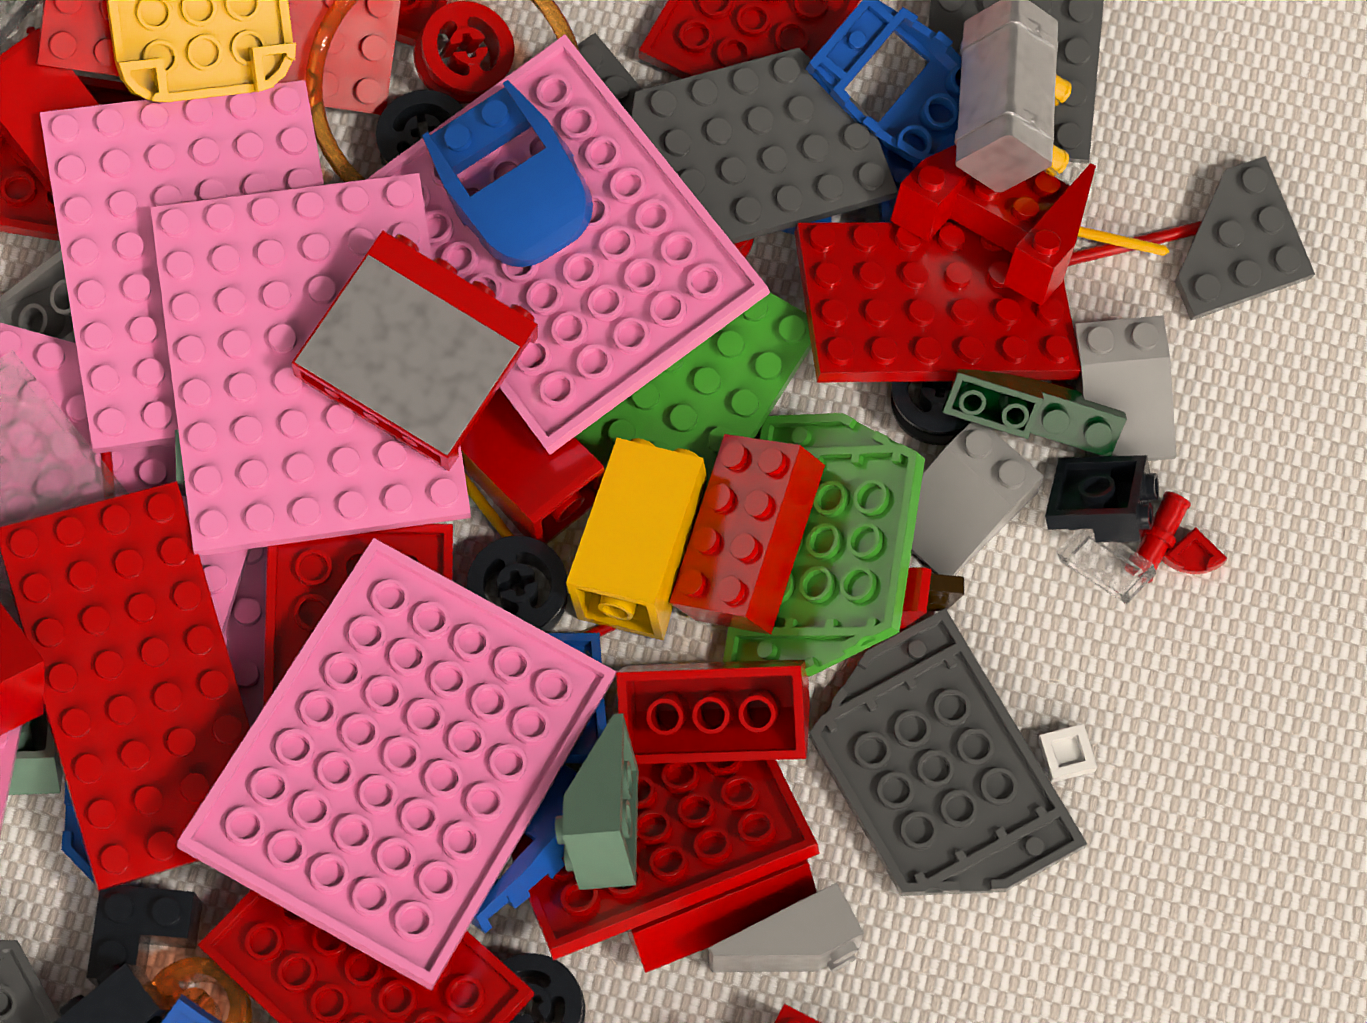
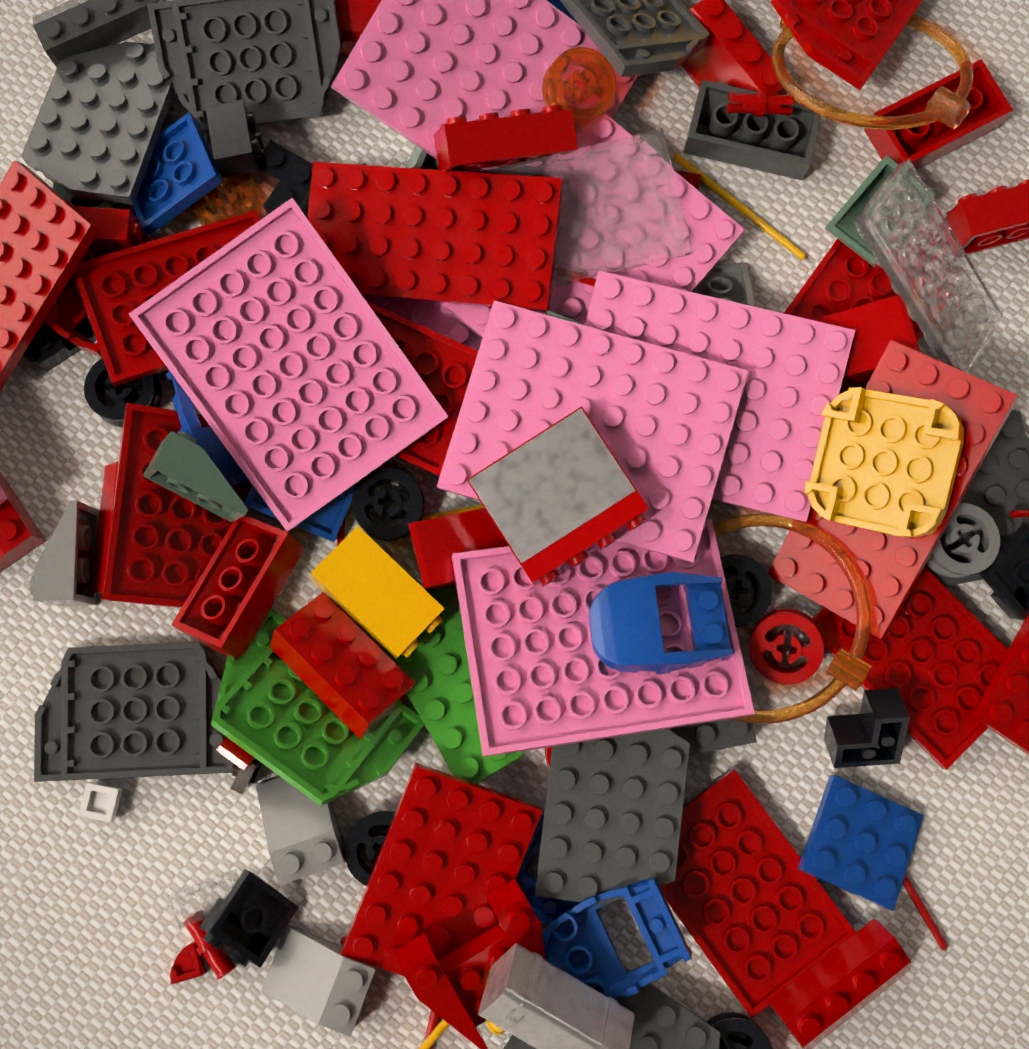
camera: 115 degrees right, 10 degrees up
(1034, 407) = (333, 902): dark green slope -> none

